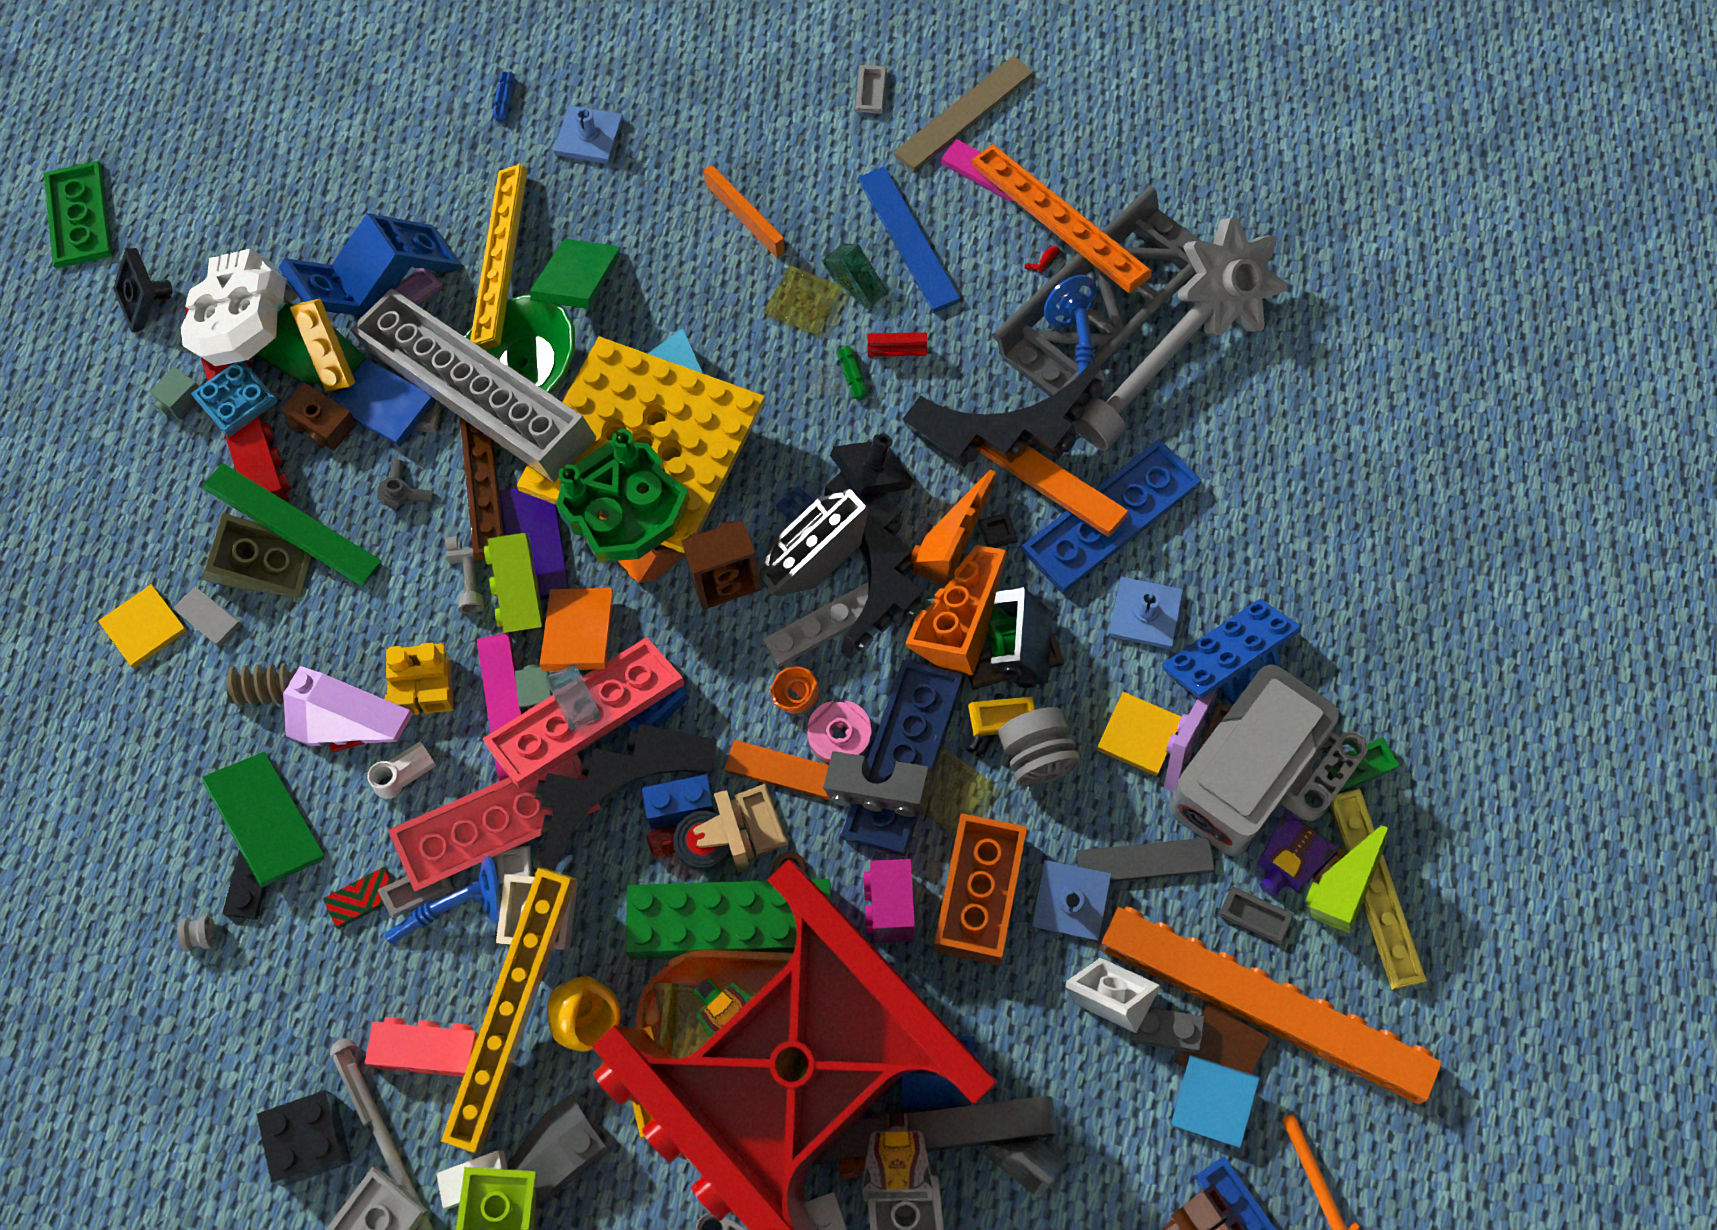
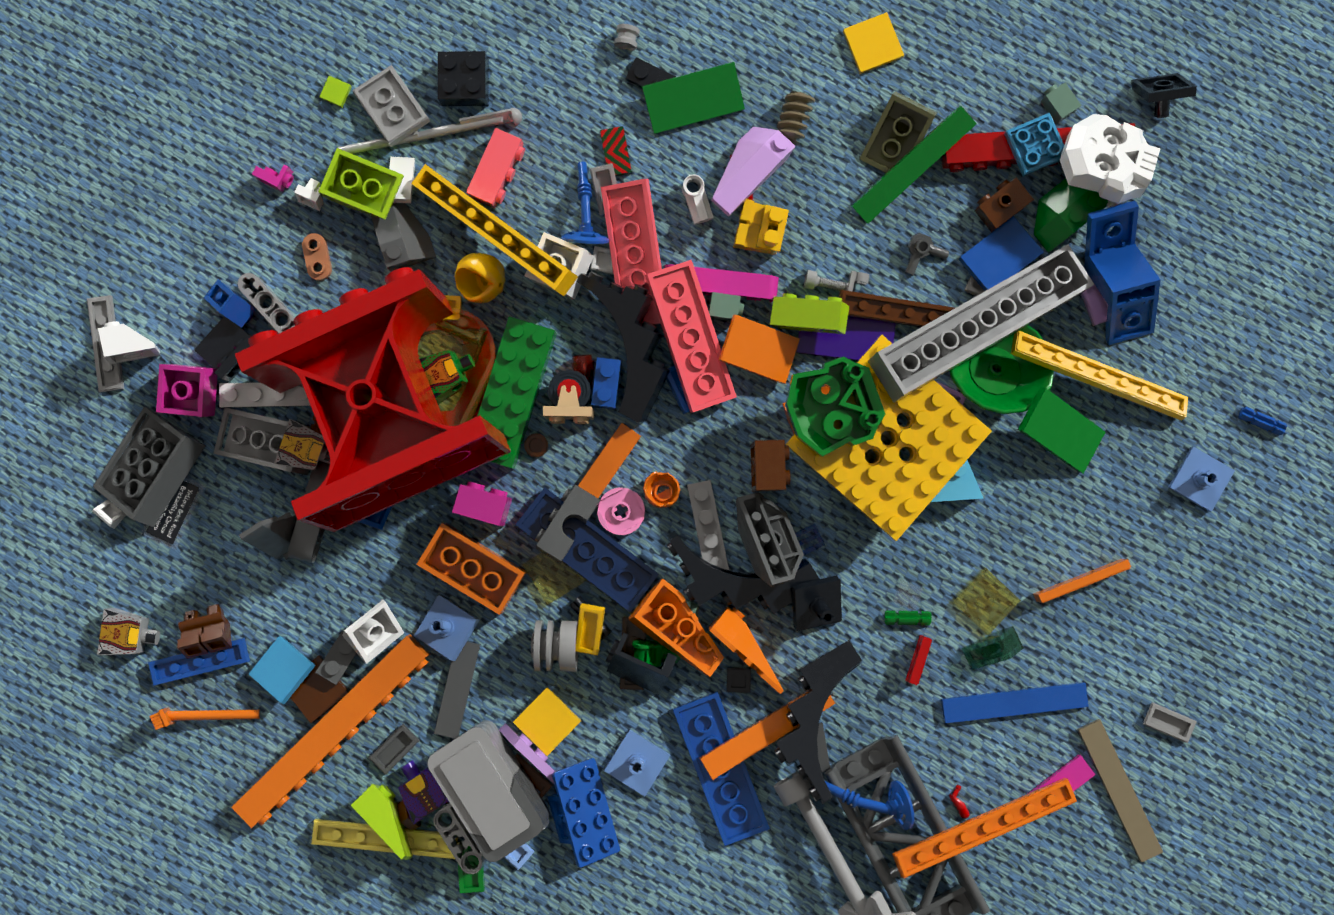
camera: 105 degrees right, 20 degrees up
(77, 214) = (1258, 57): green tile -> none
(207, 616) = (865, 90): light grey tile -> none
(322, 345) = (1057, 219): yellow plate -> none
(573, 697) = (701, 330): clear light blue tile -> none
(761, 820) = (577, 436): tan tile -> none

